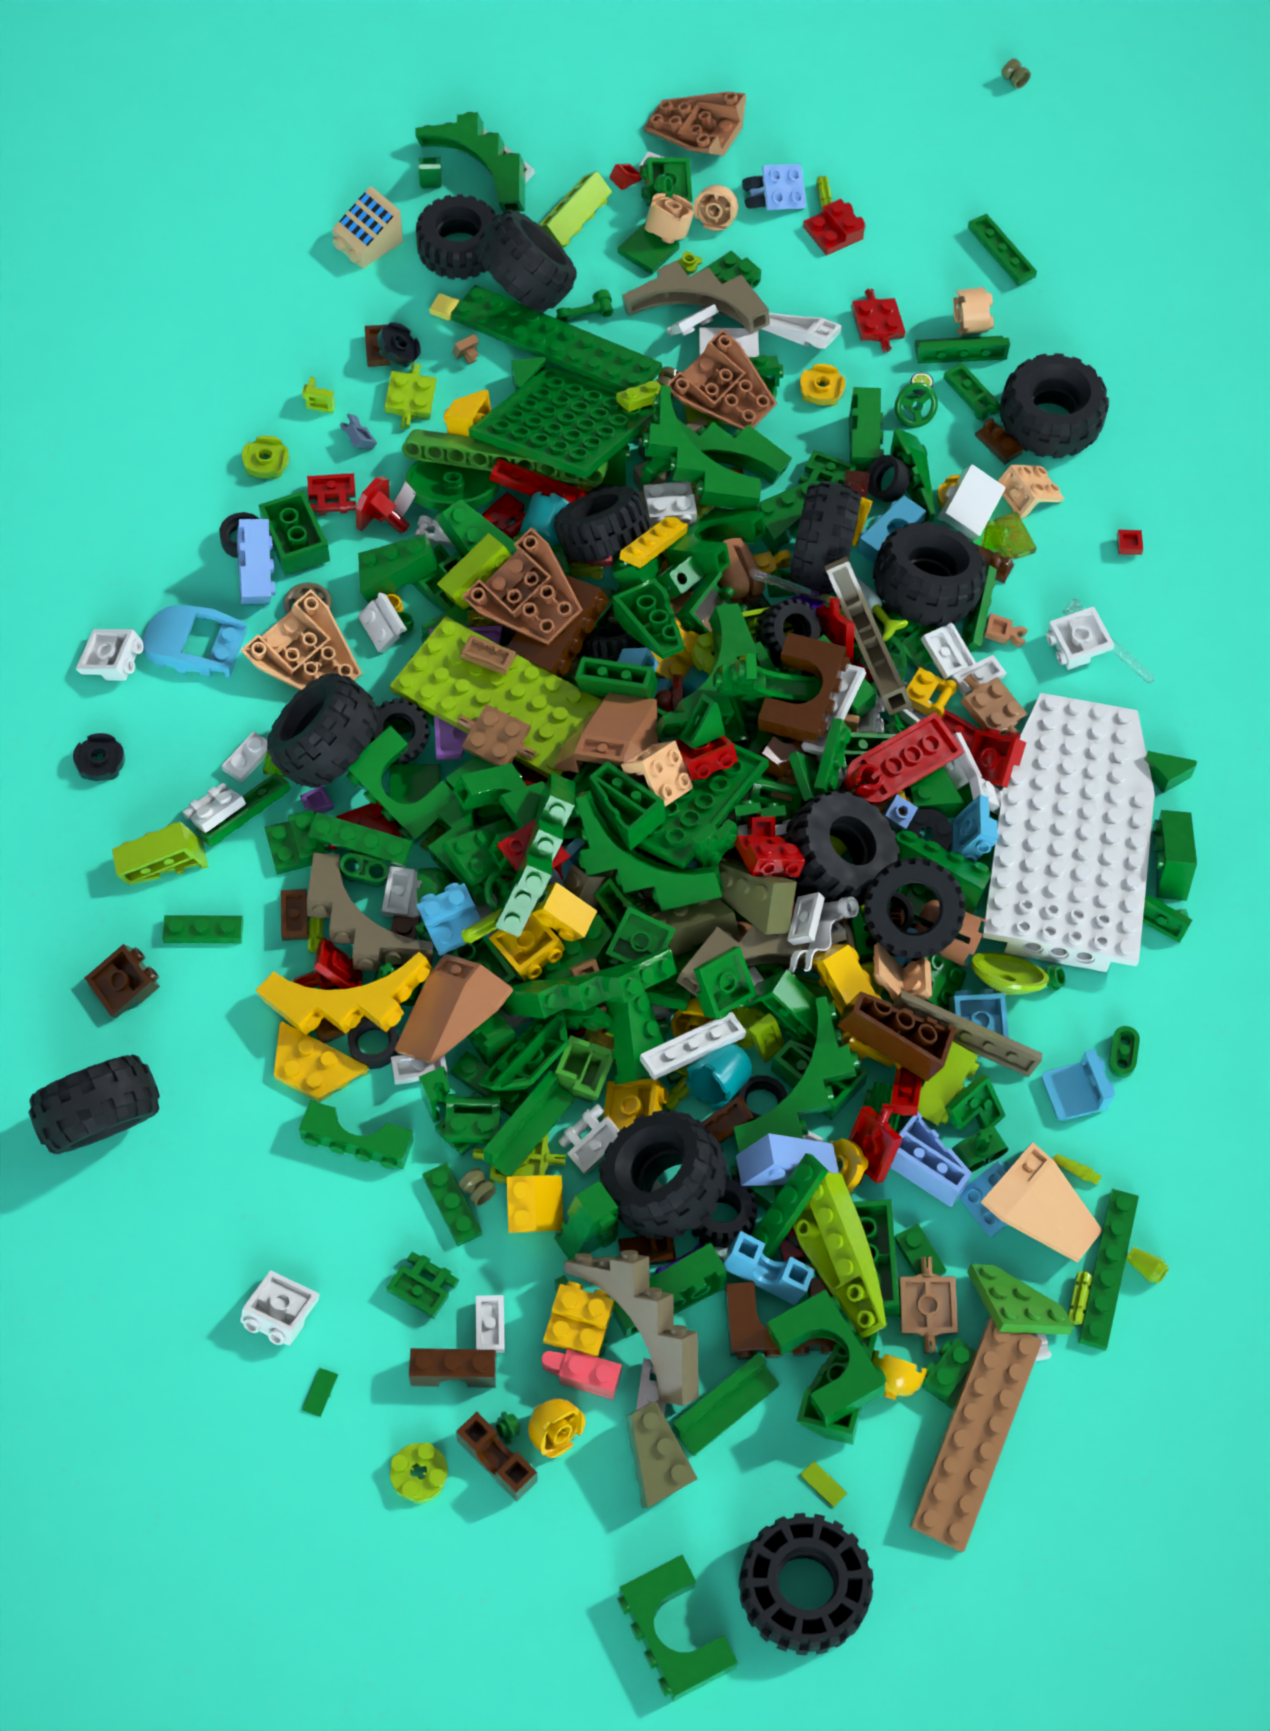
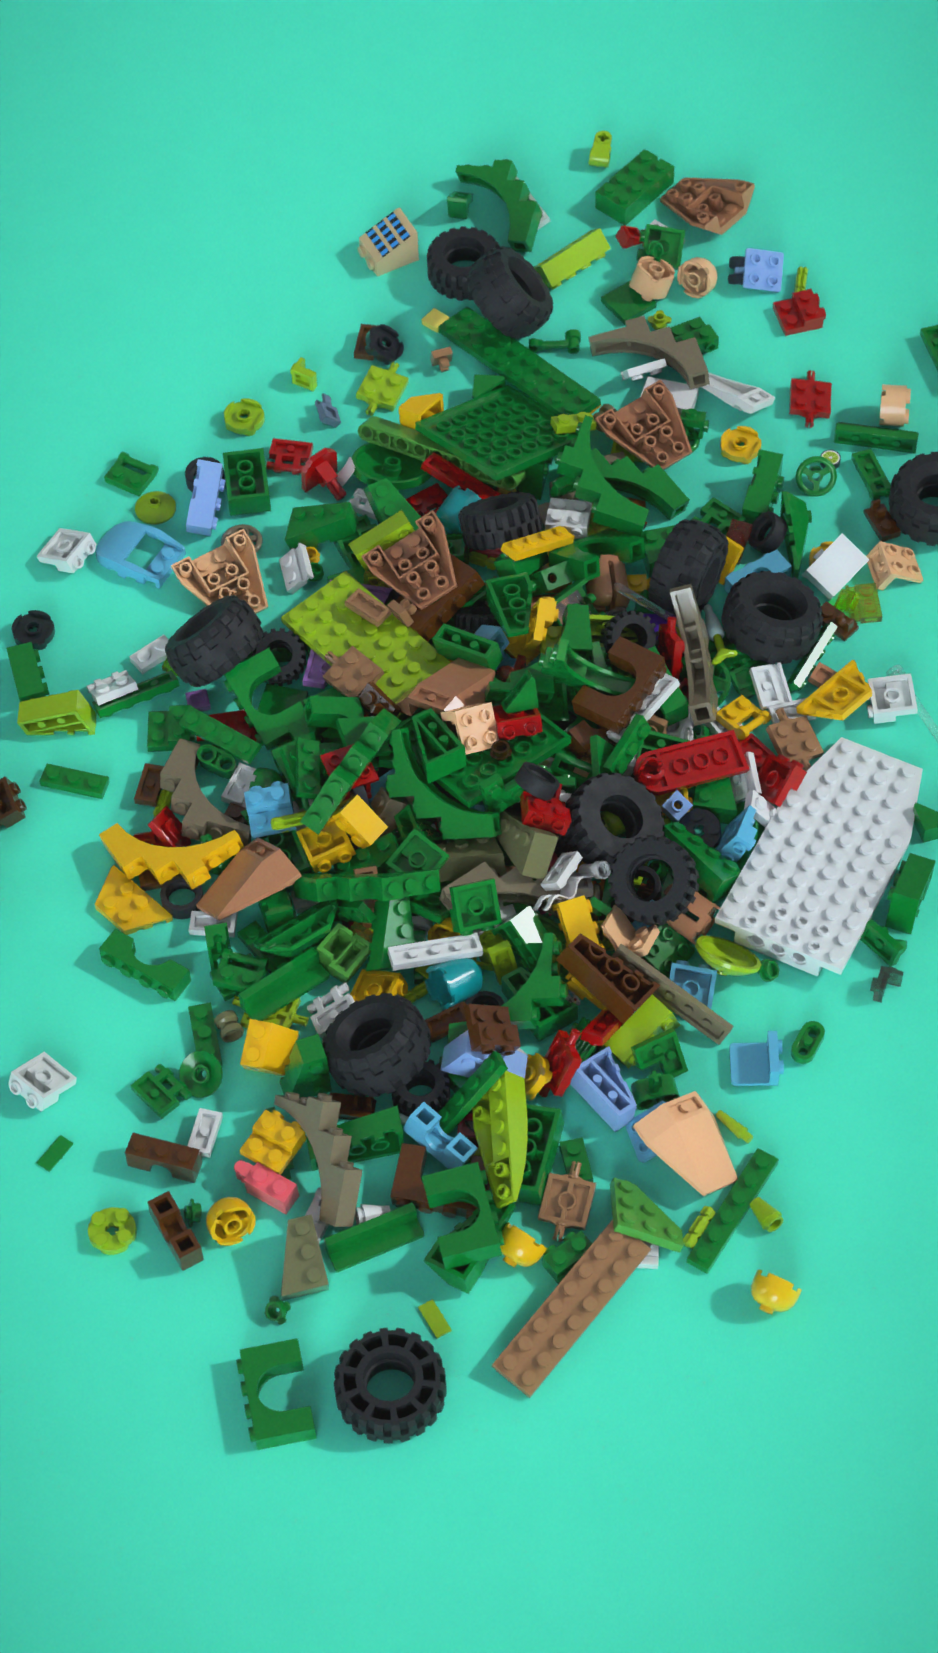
camera: 20 degrees right, 5 degrees down
(108, 811) = (27, 672): none -> green brick
(153, 555) = (128, 479): none -> green plate
(195, 590) = (155, 507): none -> lime dish
(451, 1253) = (192, 1069): none -> green dish
(483, 861) = (307, 768): none -> green plate
(528, 653) = (403, 611): none -> medium nougat tile
(536, 764) = (375, 700): none -> reddish brown plate
(565, 85) = (601, 149): none -> lime piece
(614, 119) = (634, 187): none -> green piece
(640, 1529) = (271, 1312): none -> green plate
(693, 624) = (541, 618): none -> yellow plate
(698, 794) = (500, 750): none -> dark brown plate
(711, 1376) = (368, 1212): none -> white cone
(753, 822) = (537, 781): none -> black tyre
(792, 1128) = (491, 1029): none -> reddish brown plate
(863, 951) = (599, 907): none -> green plate
(1025, 647) = (838, 695): none -> yellow wing
(1179, 962) = (886, 976): none -> clear smoke bracket
(1190, 1358) = (773, 1293): none -> yellow cylinder

